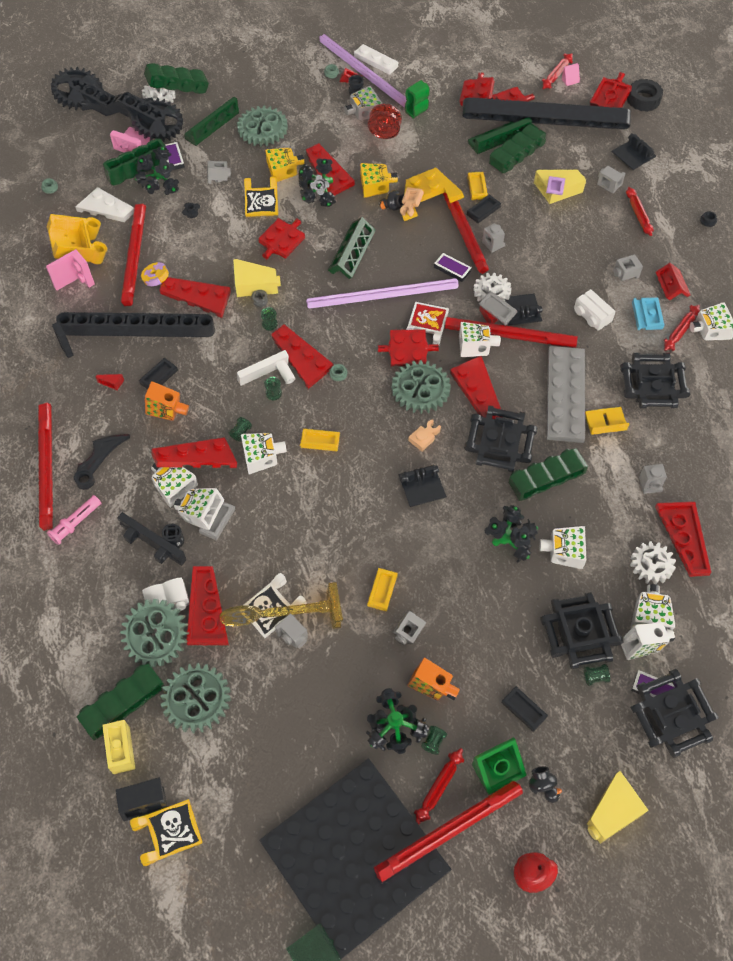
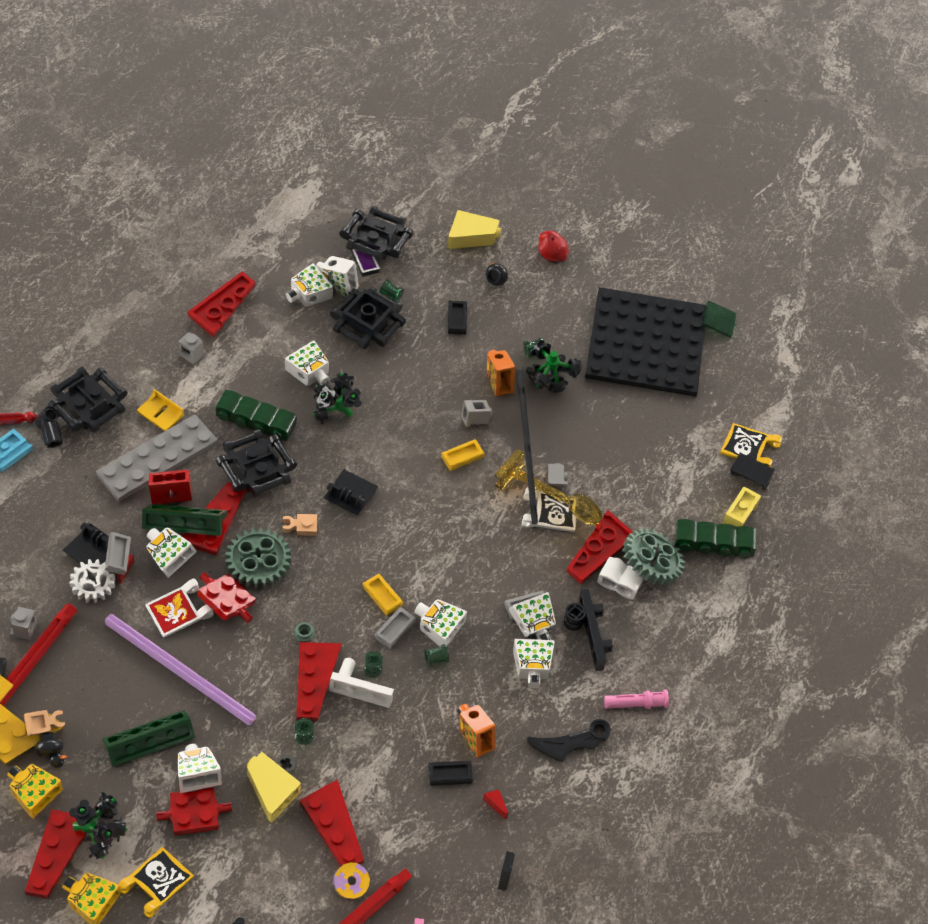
camera: 140 degrees left, 5 degrees down
(45, 466) = (619, 773): red piece -> none
(136, 324) = (424, 847): black beam -> none
(180, 710) = (644, 497): sand green gear -> none
(206, 452) = (494, 657): red wing -> none
(287, 426) = (395, 628): none -> light grey tile
(303, 250) = (197, 769): none -> white torso
(345, 638) = (527, 447): none -> black piece
(439, 786) = (558, 326): red wheel -> none
(447, 831) = (579, 297): red piece -> none
(452, 267) = (90, 637): tile -> none
(490, 360) = (183, 519): none -> dark green fence
(499, 766) = (510, 305): green slope -> none
(519, 333) = (124, 528): red piece -> none
(527, 373) = (170, 487): none -> red brick
(594, 310) = (43, 489): white brick -> none
(643, 558) = (268, 308): white gear -> none
(645, 344) = (49, 426): none -> black piece

